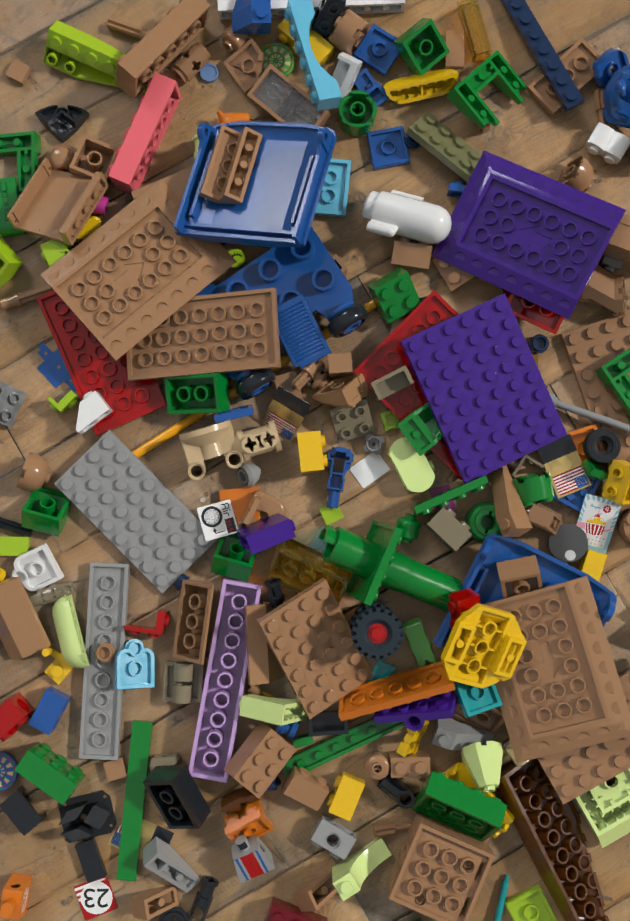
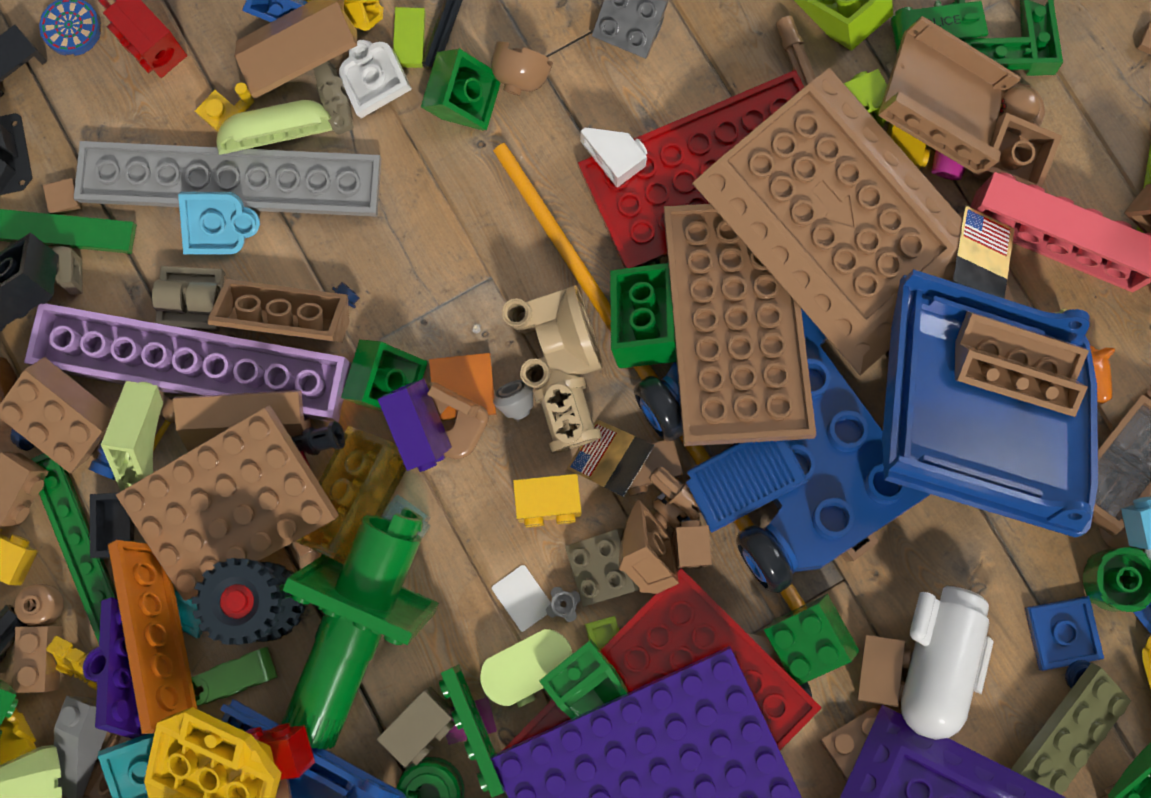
camera: 90 degrees right, 5 degrees down
(49, 710) = (155, 98): blue panel -> none
(50, 370) = (684, 93): blue piece -> none
(50, 772) = (58, 98): green brick -> none
(62, 121) = (1081, 107): black brick -> none
(68, 402) = (630, 119): lime bracket -> none
(105, 652) = (238, 178): medium nougat plate -> none
(135, 511) = (458, 225): light grey plate -> none
(160, 184) = (983, 253): none -> sticker
(162, 622) = (284, 265): red bracket -> none
(217, 520) = (441, 350): white sticker -> none
(234, 413) = (612, 376): blue tile -> none
(239, 256) = (869, 382): lime tile -> none
(303, 740) = (86, 484): green tile -> none
(330, 515) = (451, 533): lime tile -> none
(335, 189) = (989, 538): medium azure plate -> none
(336, 480) = (502, 541): blue piece -> none
(391, 383) = (661, 632): dark tan panel -> none
(410, 527) = (422, 659): green head -> none
(455, 189) = (998, 749): blue plate -> none

